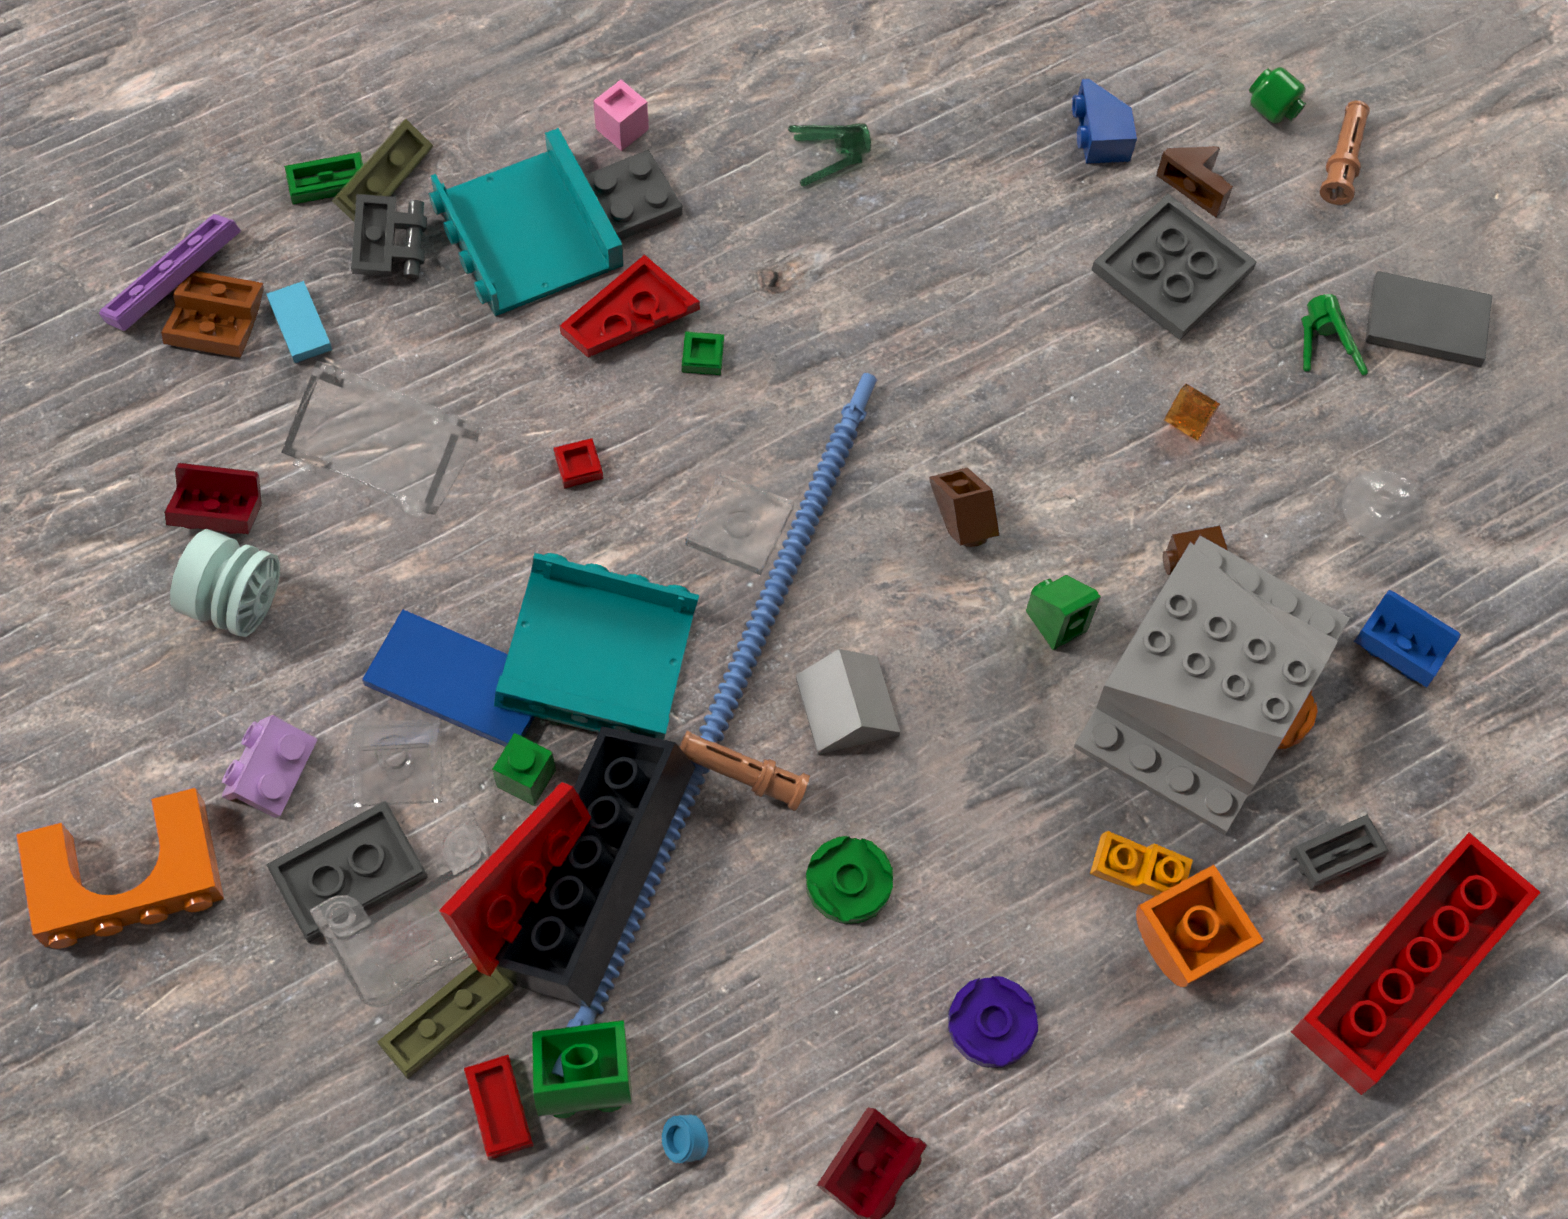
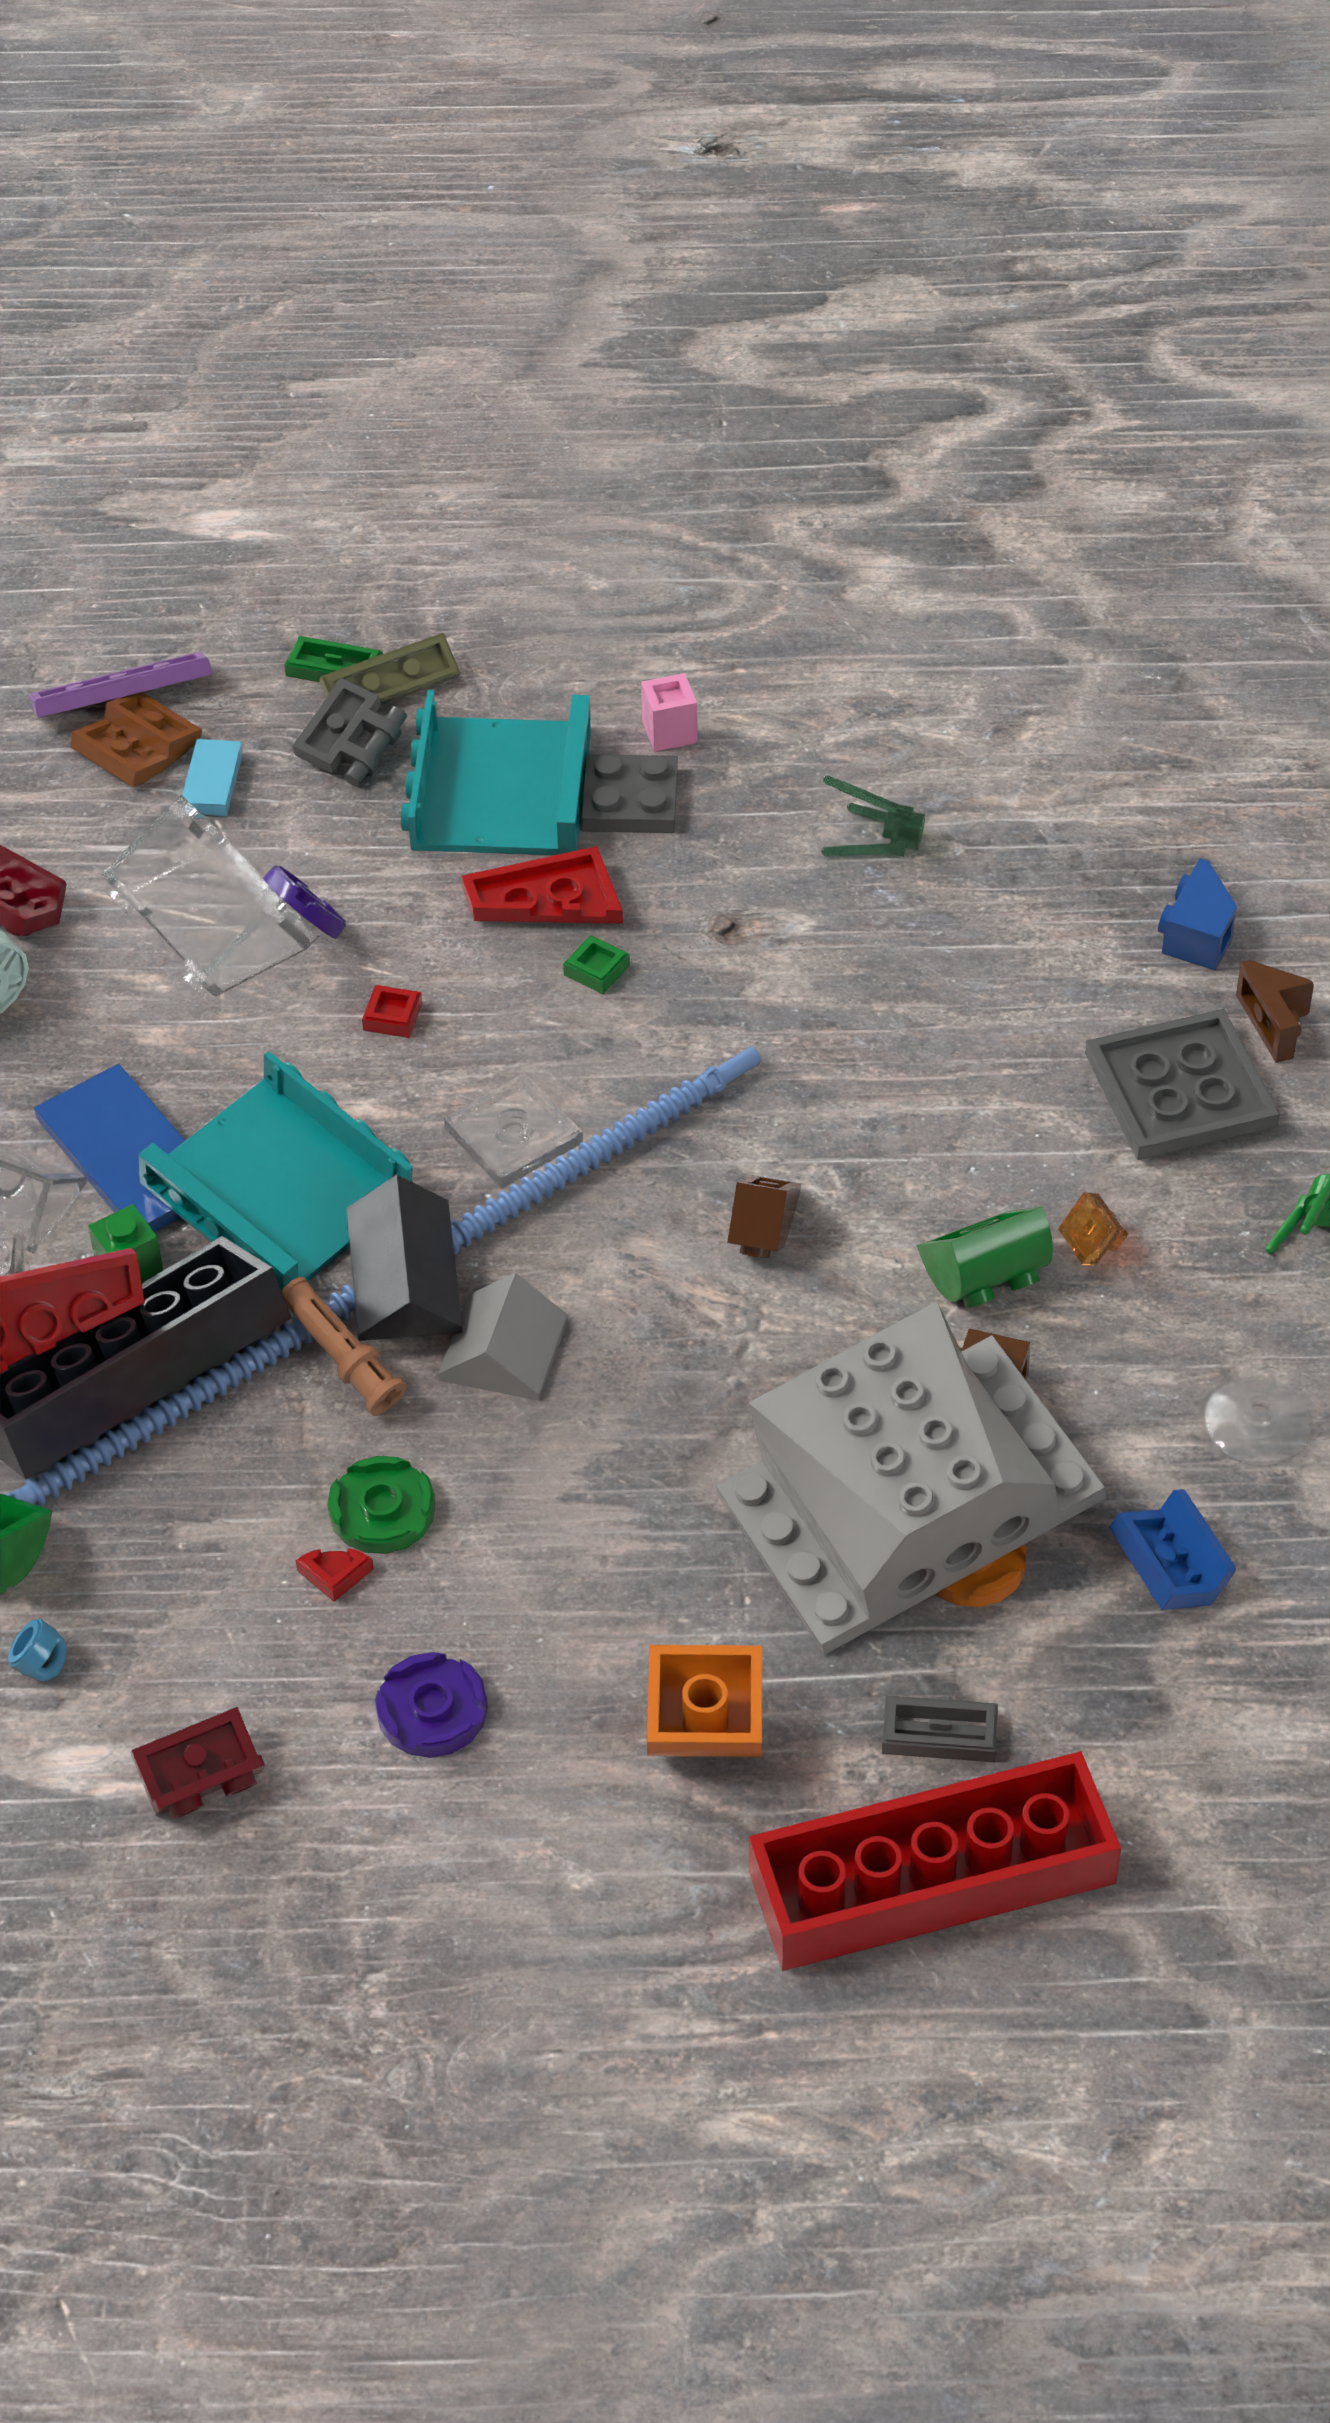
camera: 35 degrees right, 15 degrees down
(461, 404) = (304, 901): none -> dark purple tile
(744, 680) = (403, 1263): none -> black slope
(851, 951) = (334, 1570): none -> red tile
(1062, 609) = (790, 1346): green slope -> none
(1139, 465) = (988, 1254): none -> green brick
(1139, 867) = (688, 1620): light orange slope -> none

